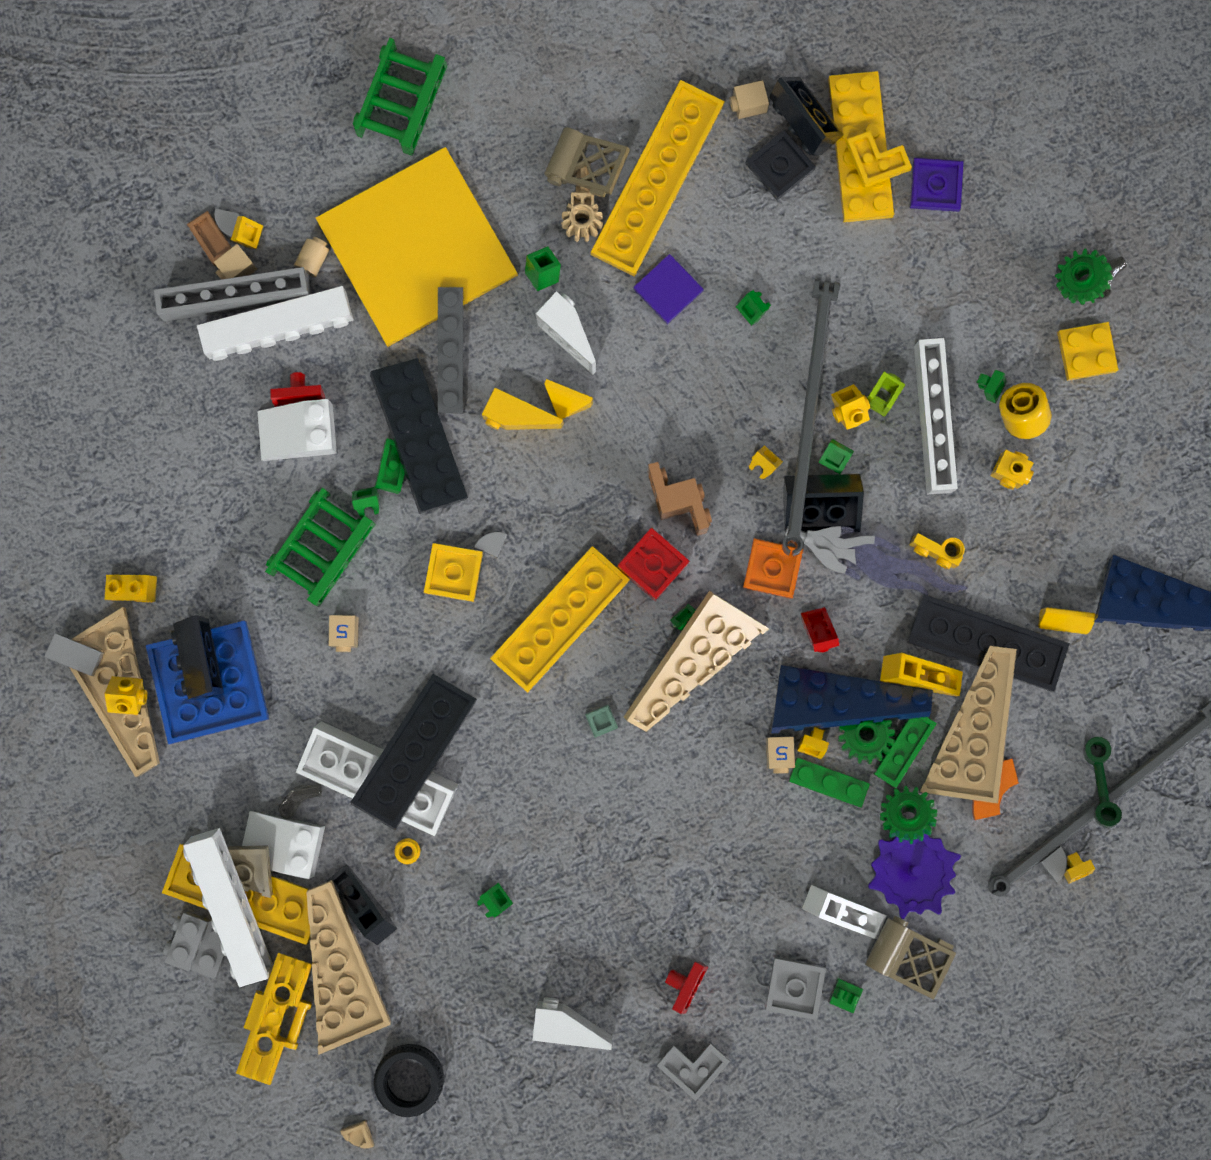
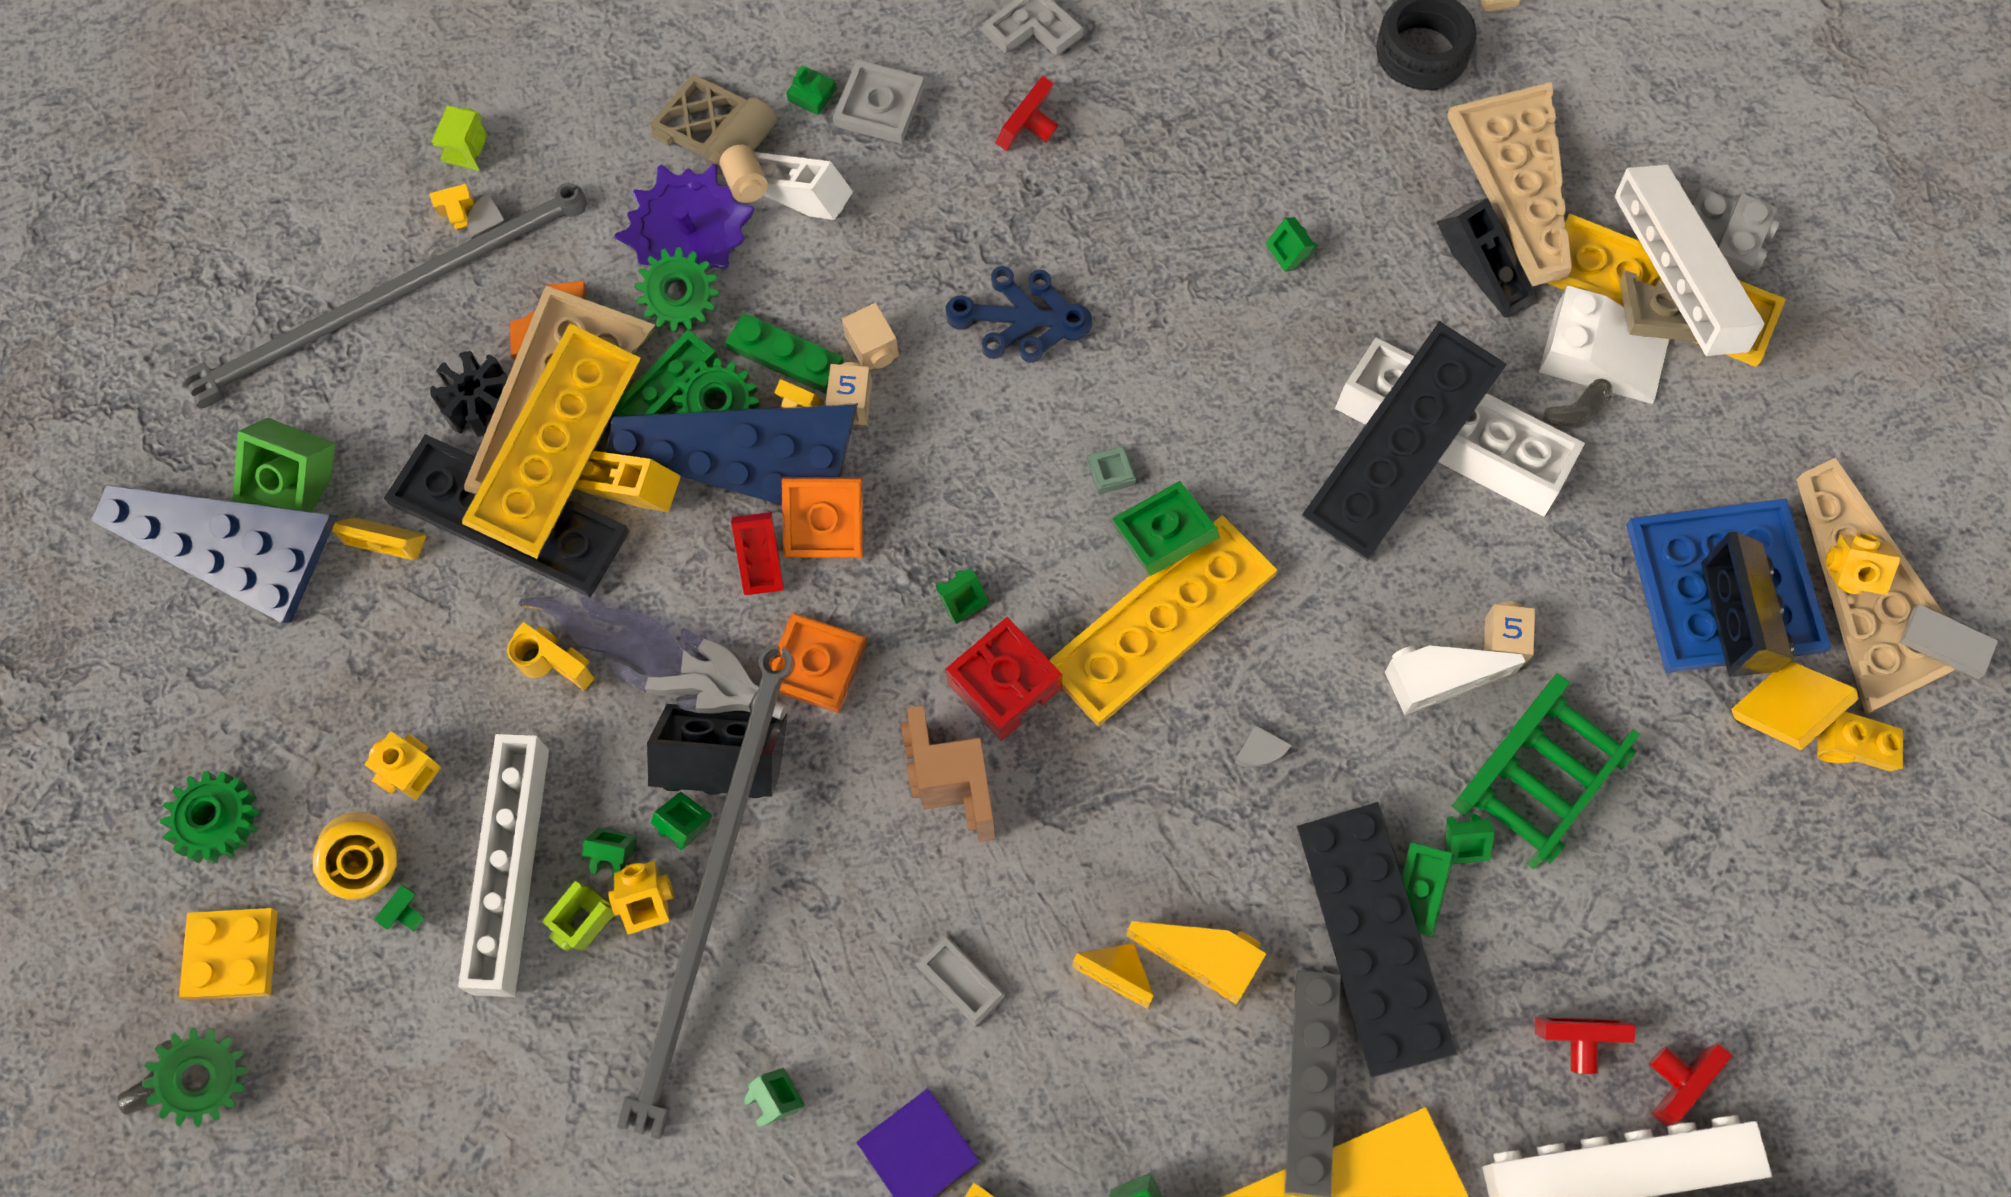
camera: 175 degrees left, 15 degrees down
(169, 602) = (1795, 704): none -> yellow tile
(240, 375) = (1686, 1080): none -> red tile
(267, 1015) = (1625, 134): yellow piece -> none
(297, 430) = (1583, 971): white slope -> none
(388, 600) = (1441, 673): none -> white slope
(401, 857) = (1416, 313): yellow plate -> none
(453, 572) = (1327, 708): yellow plate -> none
(563, 325) = (1108, 1092): white slope -> none
(563, 677) = (1165, 528): none -> green plate
(563, 1025) = (1198, 72): white slope -> none
(657, 386) = (960, 980): none -> light grey tile
(670, 826) = (1023, 317): none -> dark blue plant
(698, 653) = (957, 537): tan wing -> none
(767, 460) = (796, 828): yellow tile -> none
(771, 795) = (870, 337): none -> tan brick
(783, 661) = (822, 517): none -> orange tile
(876, 436) = (609, 846): none -> green tile
(879, 908) = (743, 173): none -> tan brick
(966, 689) = (551, 441): none -> yellow plate
(1029, 716) = (471, 393): none -> black gear
(1087, 925) = (460, 136): none -> lime window
(1106, 813) = (394, 263): dark green piece -> none
(1132, 420) = (194, 805): none -> green gear
(1142, 657) = (281, 466): none -> bright green slope

